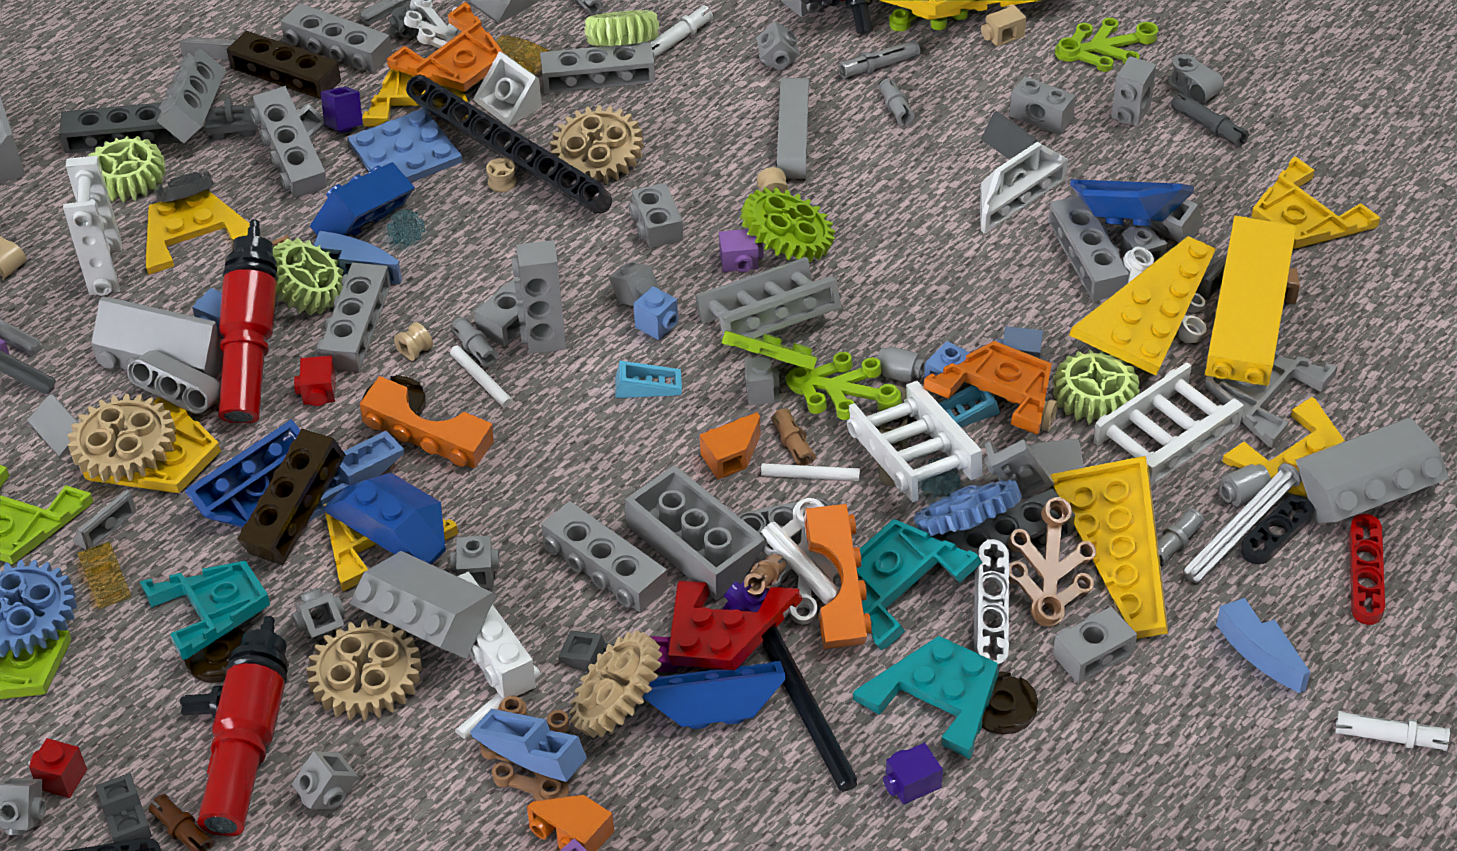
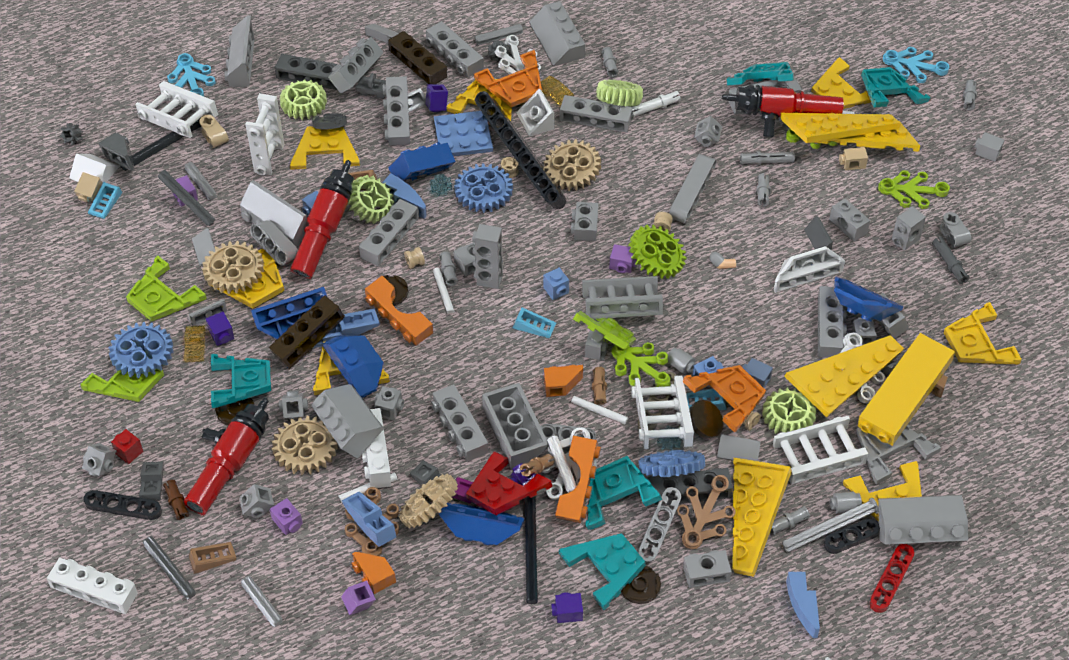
camera: 20 degrees right, 5 degrees up
(139, 537) = (220, 328): none -> dark purple brick
(316, 380) = (351, 265): red brick -> none
(385, 789) = (286, 517): none -> medium lavender brick
(475, 213) = (483, 187): none -> medium blue gear
(632, 282) = (551, 260): light grey brick -> none
(886, 215) = (720, 262): none -> arm
(981, 427) = (706, 419): none -> dark brown tile
(1020, 465) = (713, 449): light grey bracket -> none

